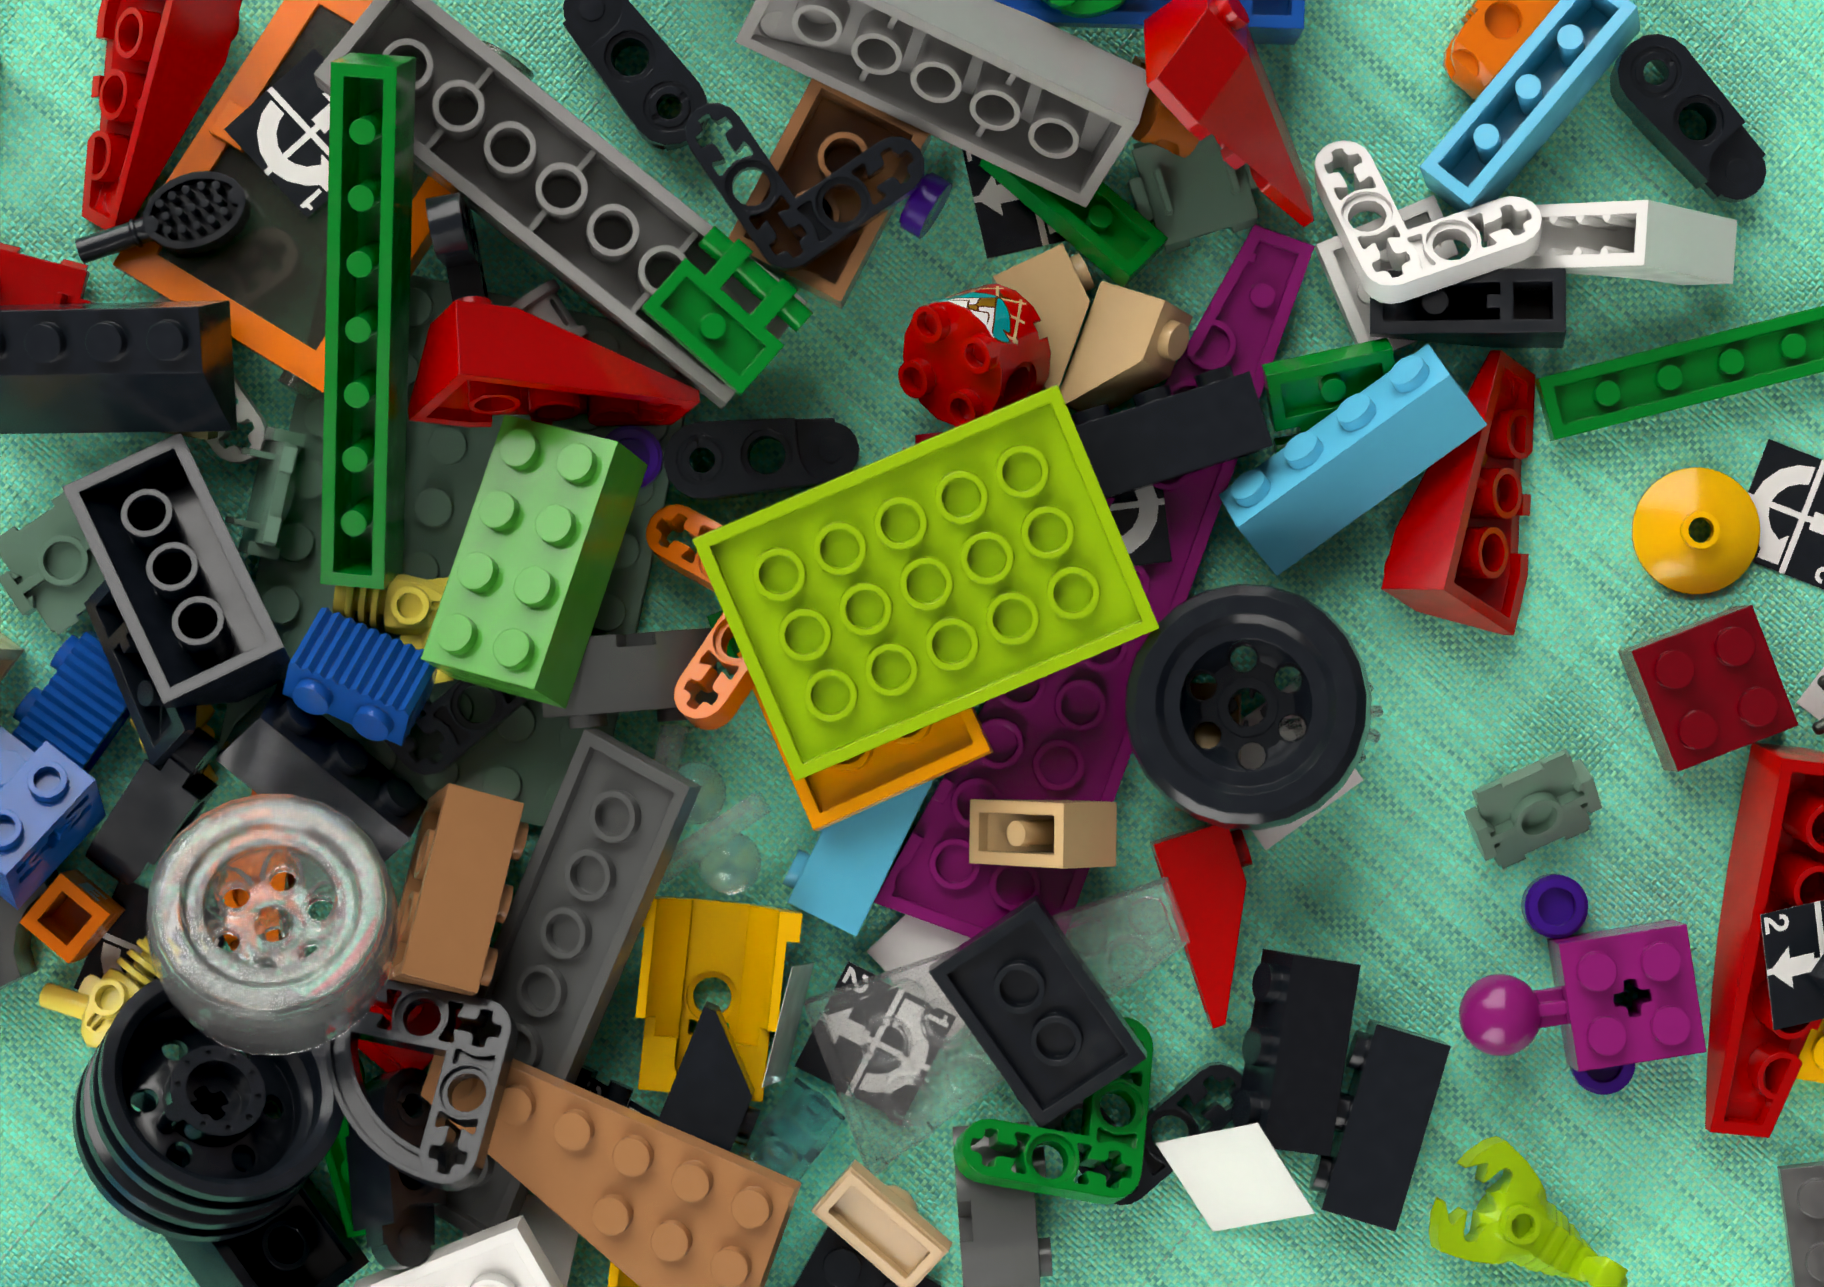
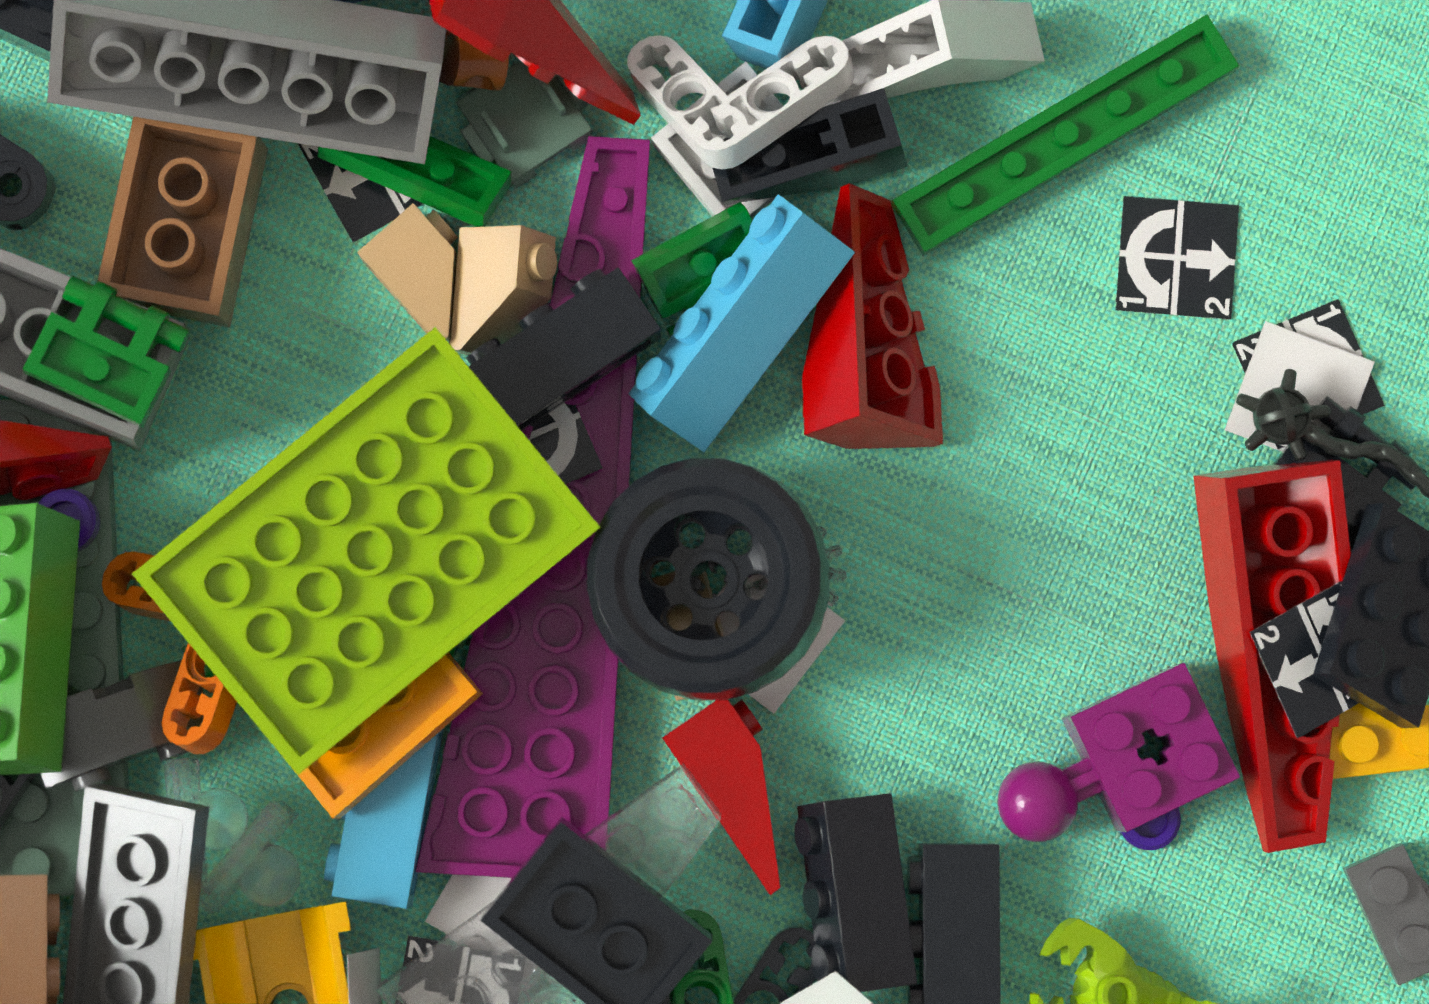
camera: 15 degrees left, 5 degrees down
(807, 209) = (160, 237): black beam -> none
(813, 448) = (160, 480): black piece -> none
(925, 205) = (278, 207): dark purple tile -> none
(973, 353) = (355, 325): red brick -> none
(1043, 833) = (554, 756): tan slope -> none
(1532, 808) = (1008, 598): sand green piece -> none
(1554, 906) = (1059, 685): dark purple tile -> none
(1663, 535) = (1064, 324): yellow dish -> none
(1708, 688) = (1137, 438): dark red brick -> none

